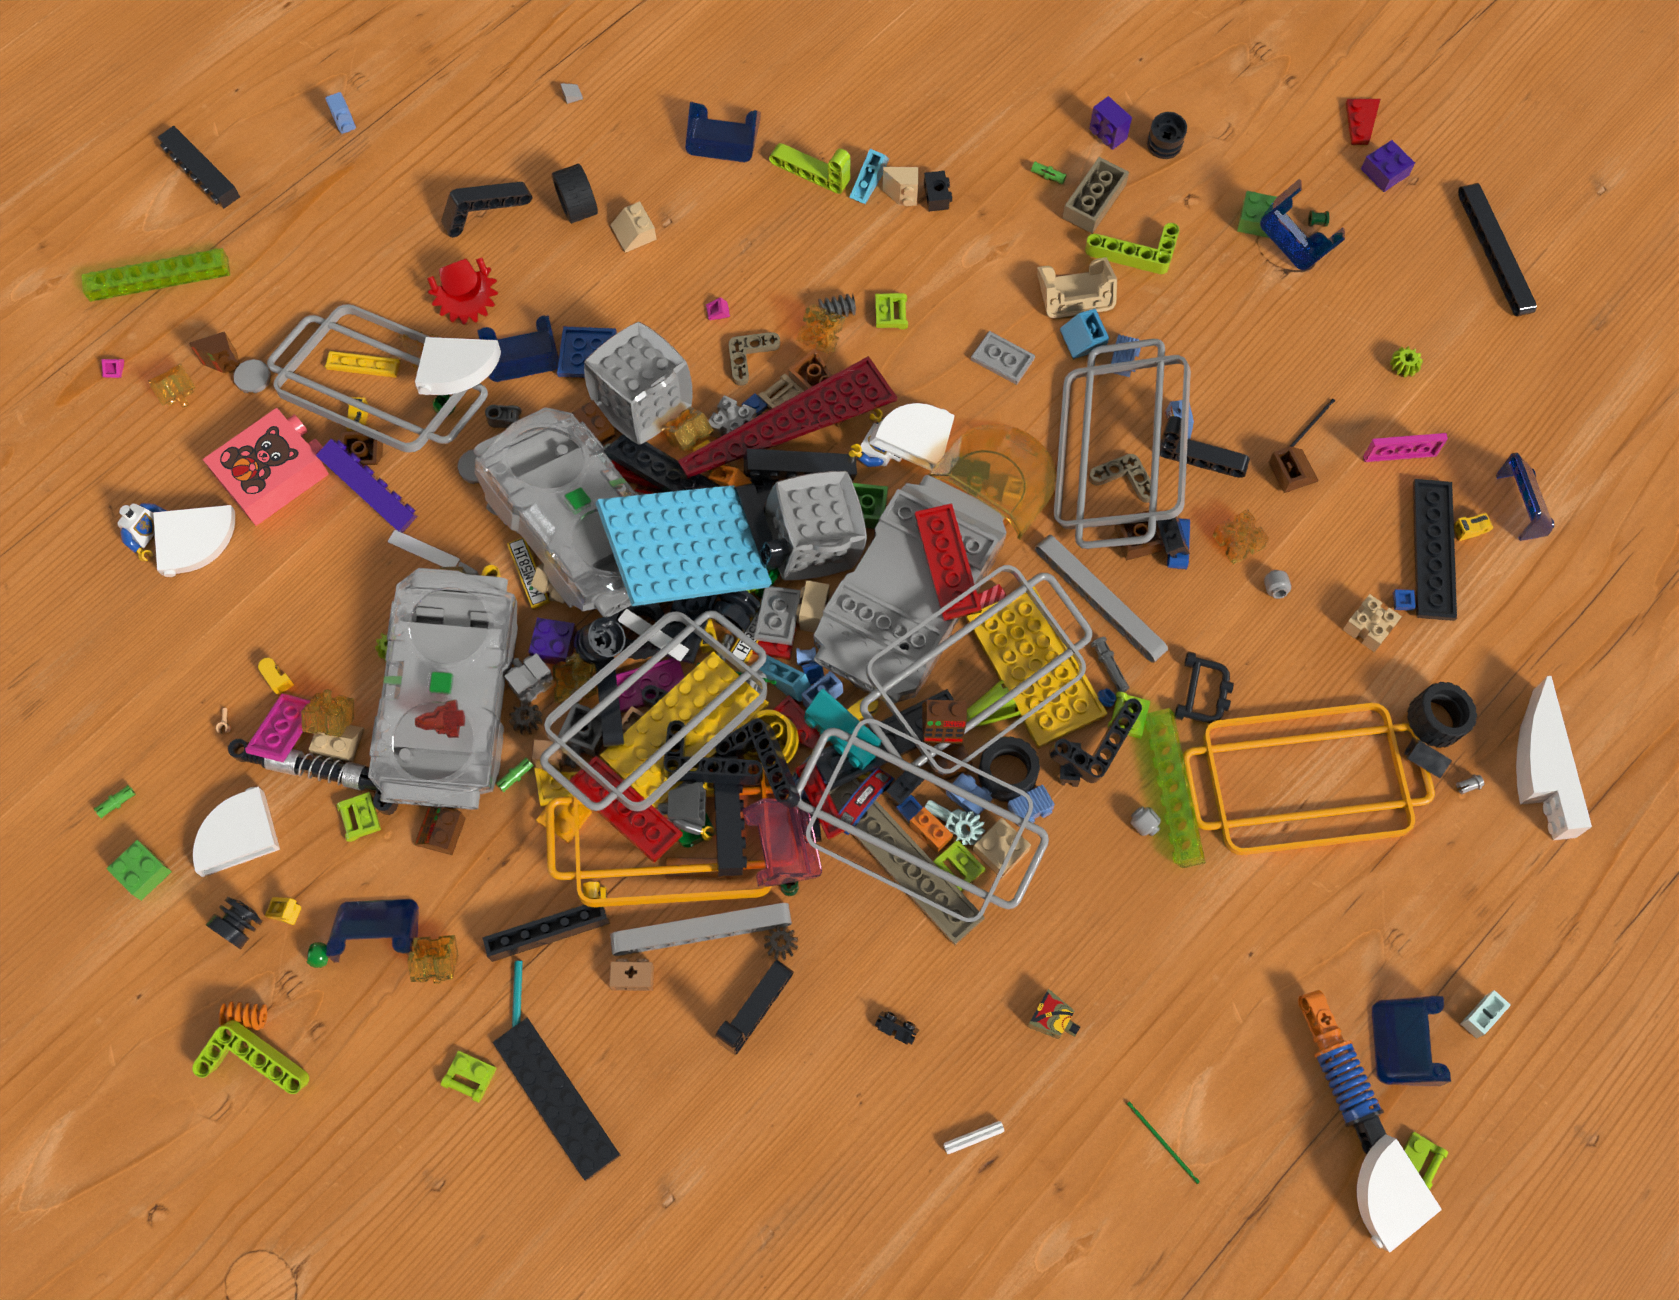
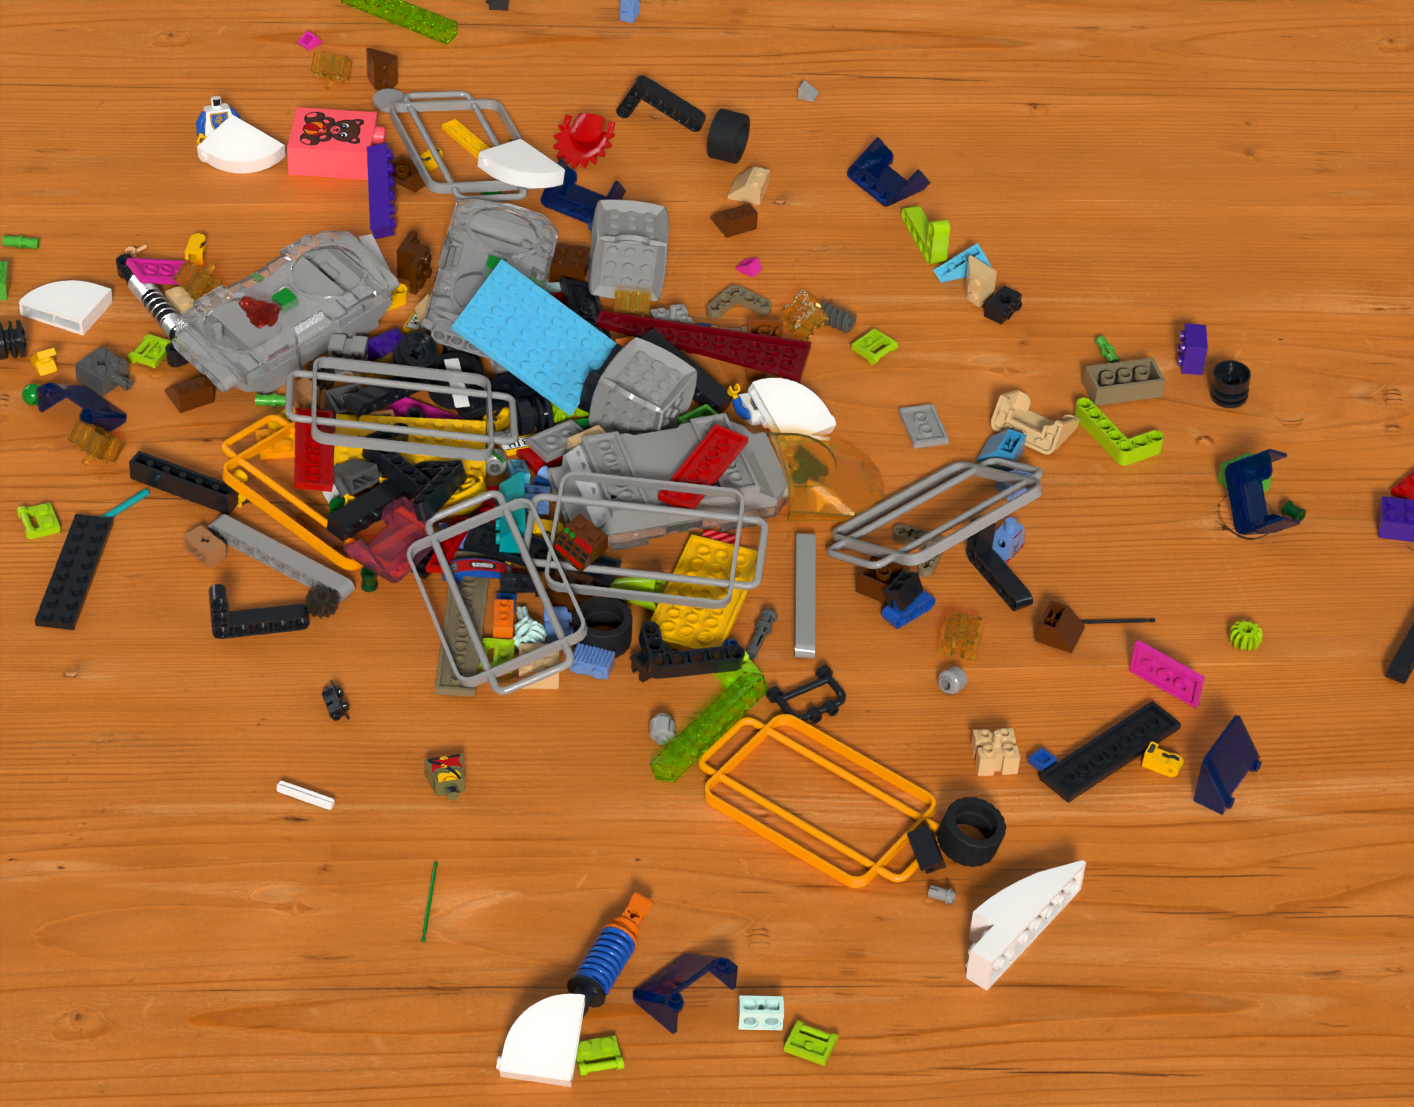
camera: 40 degrees right, 25 degrees down
(356, 884) = (103, 372): none -> dark grey brick
(473, 535) = (413, 262): none -> reddish brown bracket
(658, 270) = (736, 220): none -> reddish brown slope
(1536, 1008) = (809, 1047): none -> lime plate

